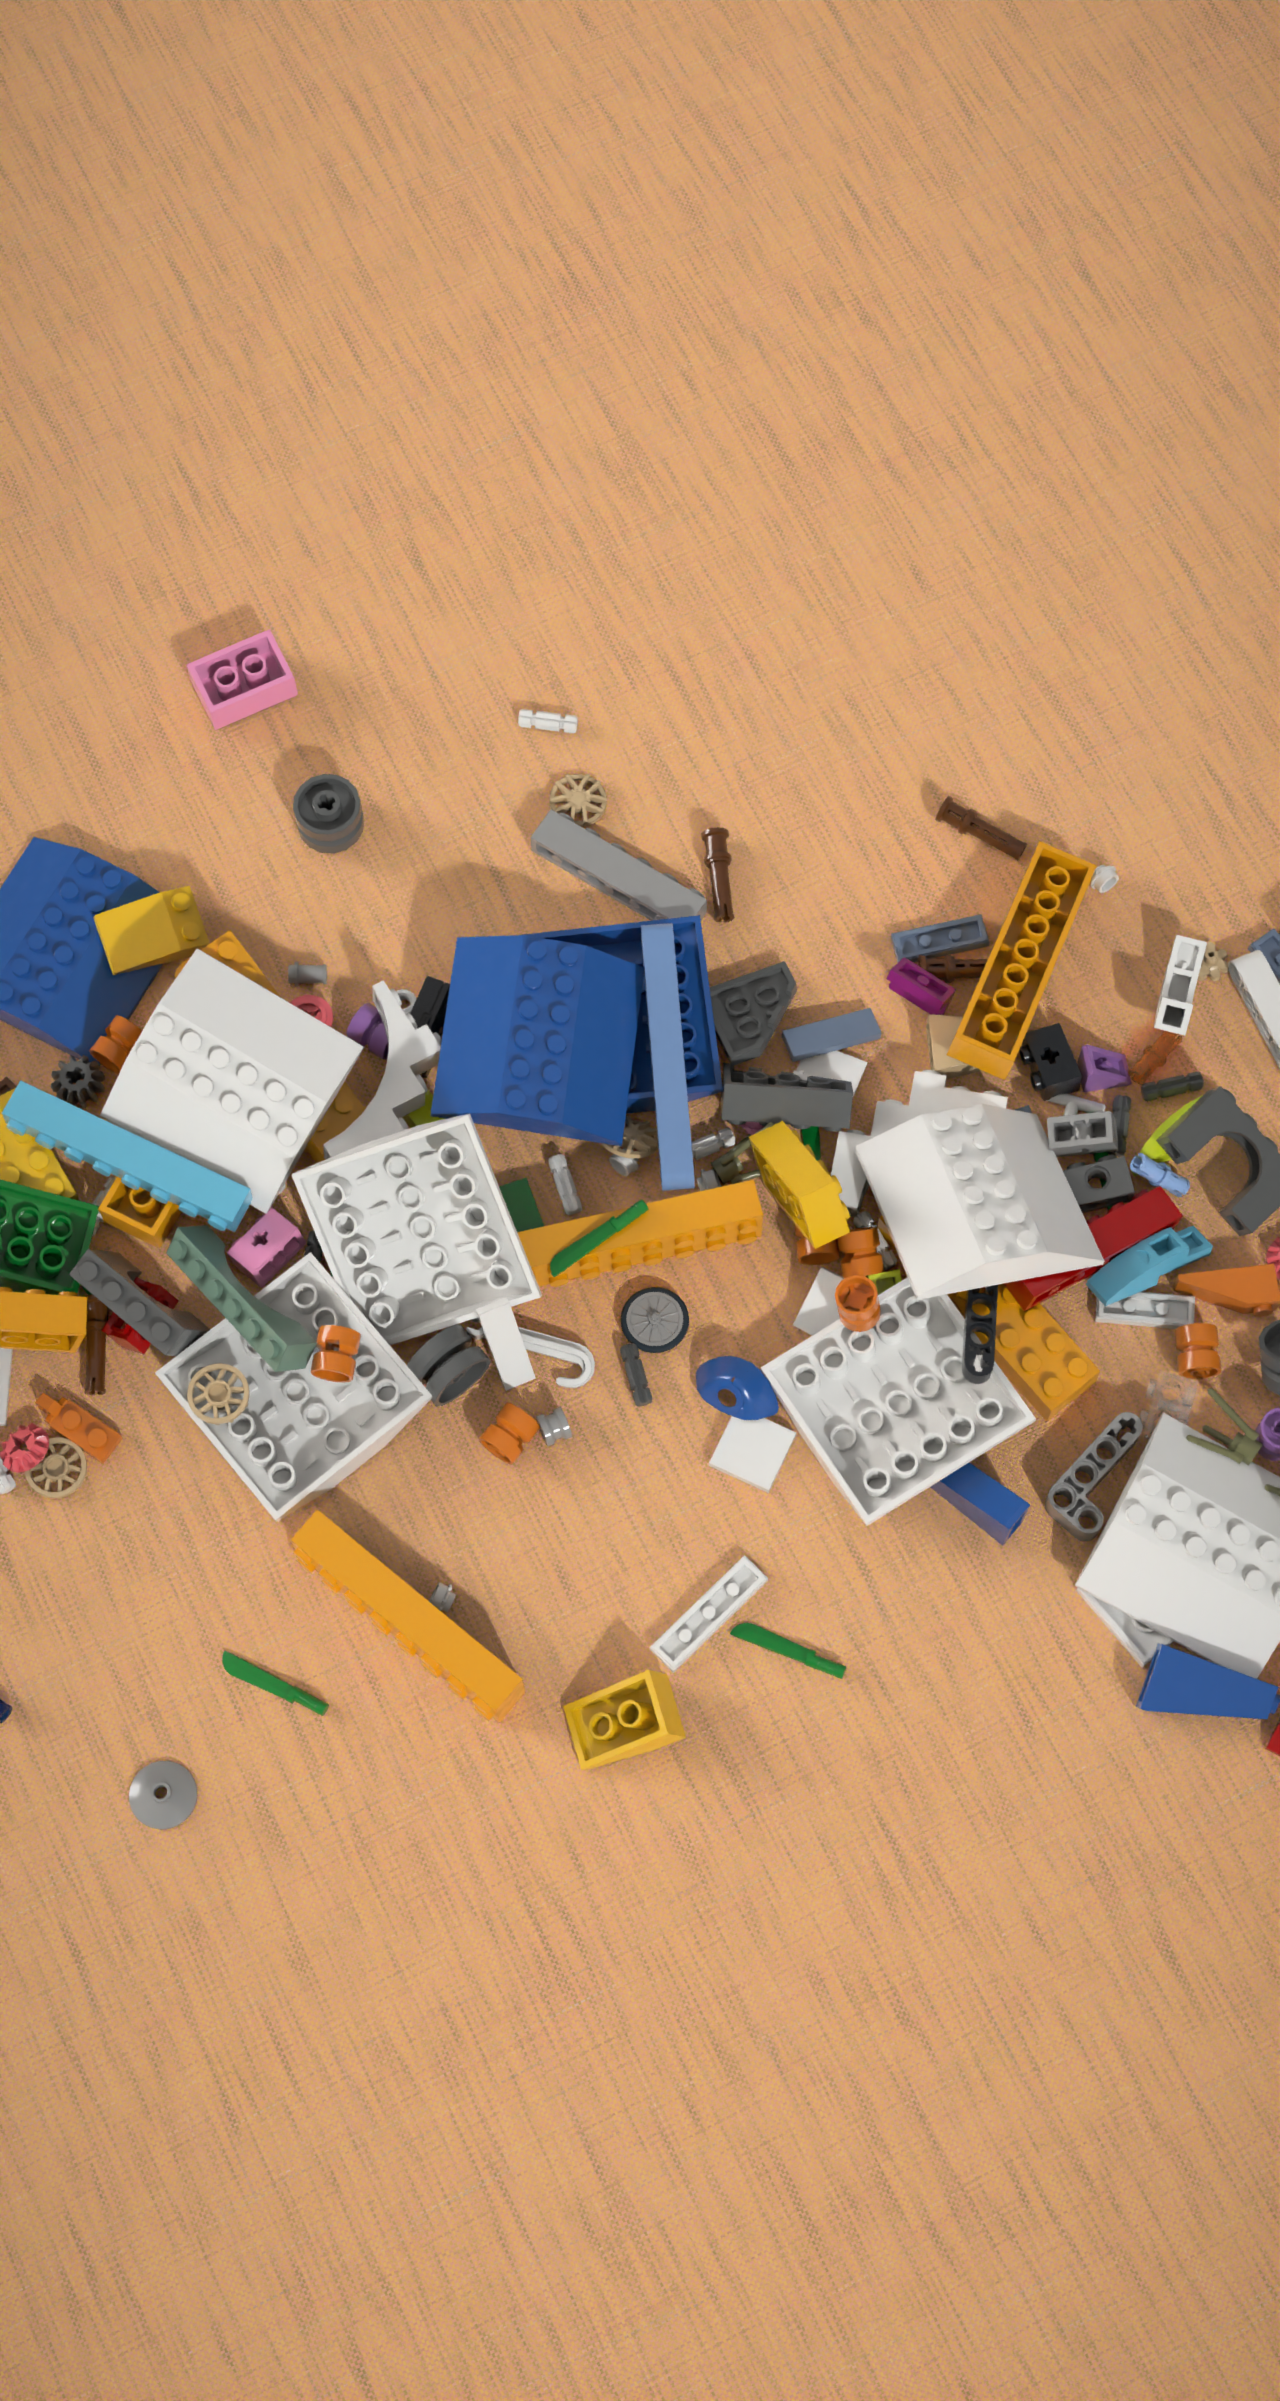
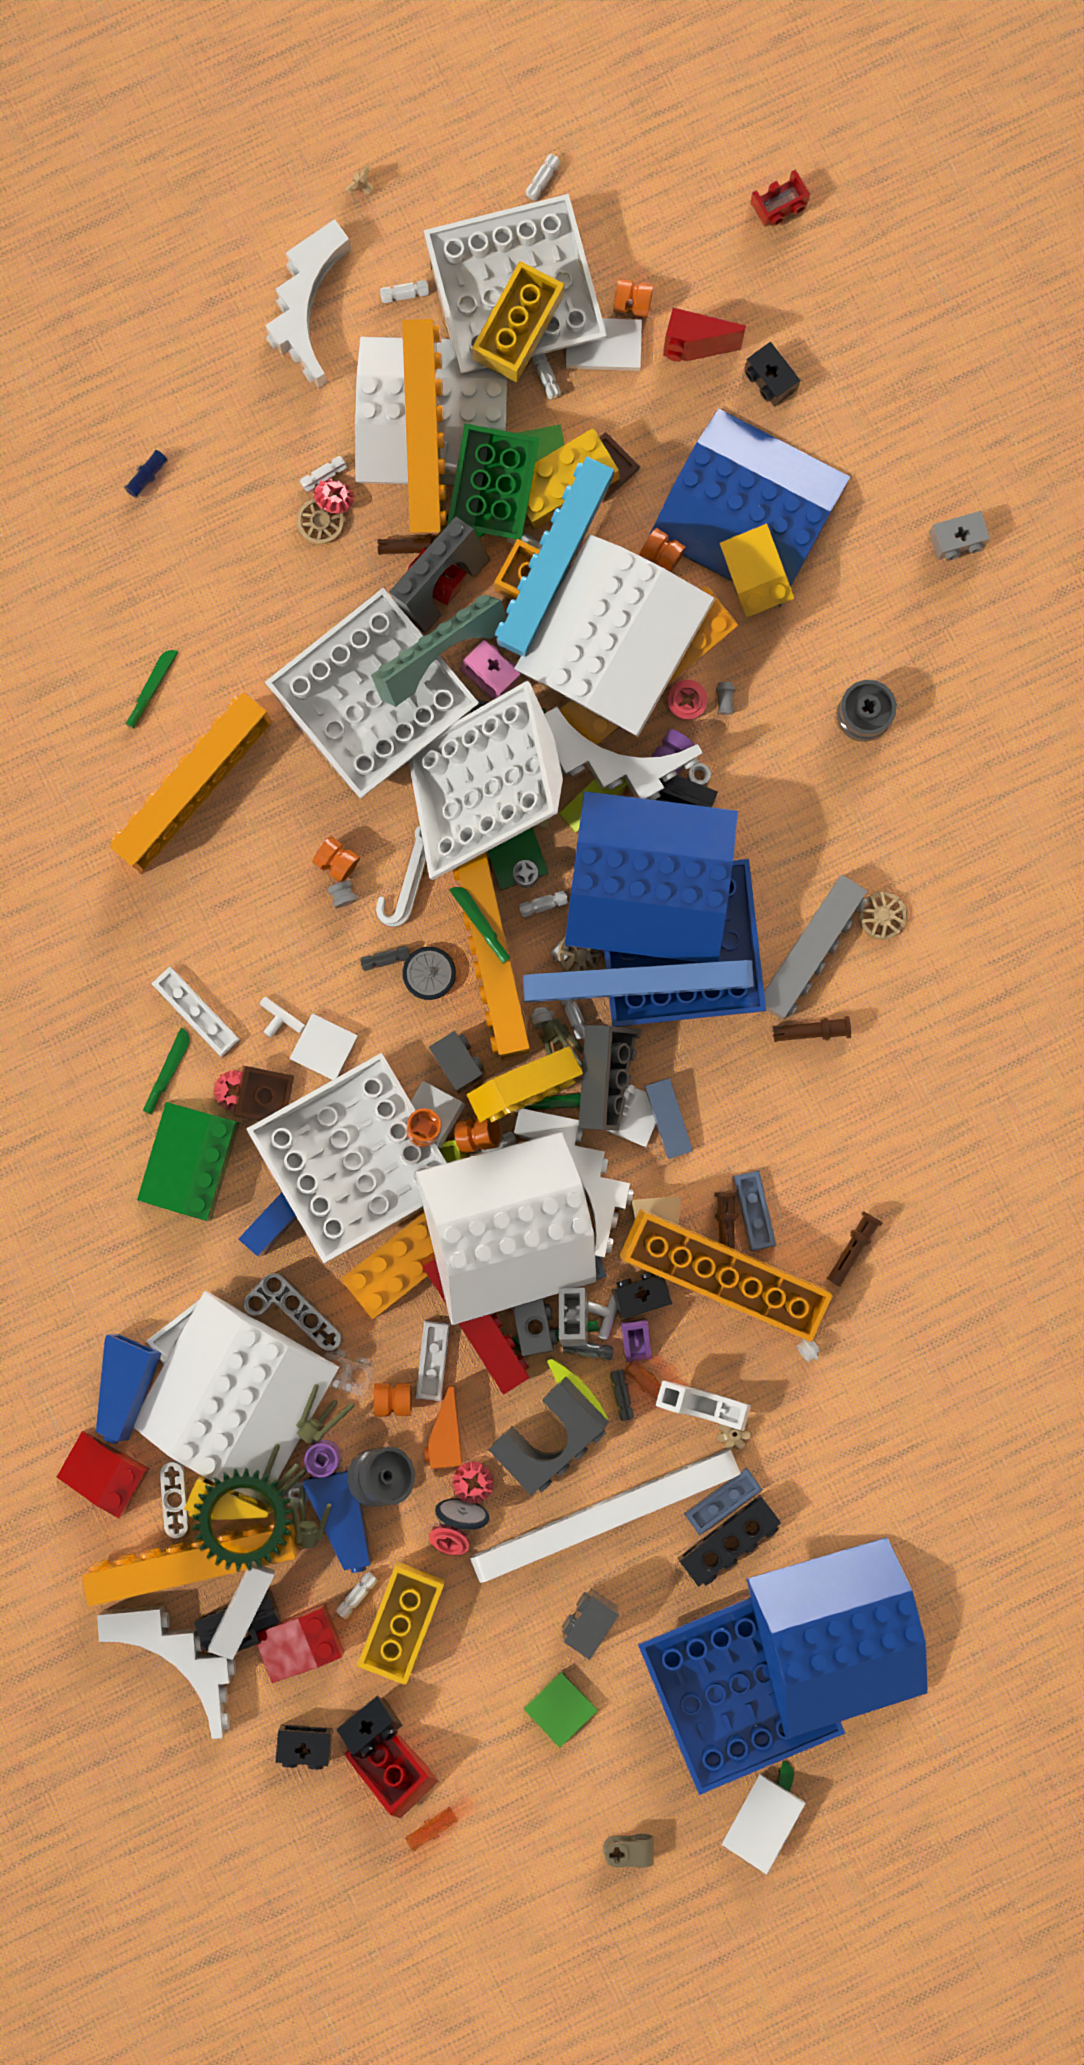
camera: 90 degrees right, 15 degrees up
(72, 1073) = (623, 517): dark grey gear -> none
(79, 1427) = (351, 536): orange hinge -> none
(120, 729) = (969, 526): none -> light grey brick
(171, 1809) = (80, 618): light grey dish -> none
(218, 1393) = (363, 635): tan wheel -> none
(242, 679) = (989, 636): bright pink brick -> none
(336, 1349) = (379, 722): orange wheel -> none
(442, 1597) = (210, 810): white plate -> none
(449, 1364) = (386, 812): dark grey wheel -> none
(505, 1343) = (402, 854): white tile -> none
(528, 1193) = (524, 869): none -> light grey wheel
(547, 721) = (955, 890): white axle -> none
(624, 1720) = (113, 947): yellow slope -> none
(714, 1504) = (280, 1017): none -> white piece
(750, 1010) = (689, 1051): dark grey plate -> none
(751, 1388) = (367, 1044): blue piece -> none
(769, 1276) = (456, 1061): none -> dark grey brick
(811, 1576) = (221, 1089): none -> coral gear
(817, 1520) = (262, 1093): none -> reddish brown tile
(907, 1615) = (188, 1161): none -> green slope
(920, 987) = (706, 1191): magenta panel -> none
(985, 1325) = (403, 1228): black beam -> none
(1146, 1261) = (465, 1364): medium azure slope -> none
(1159, 1175) = (539, 1378): light blue pin -> none

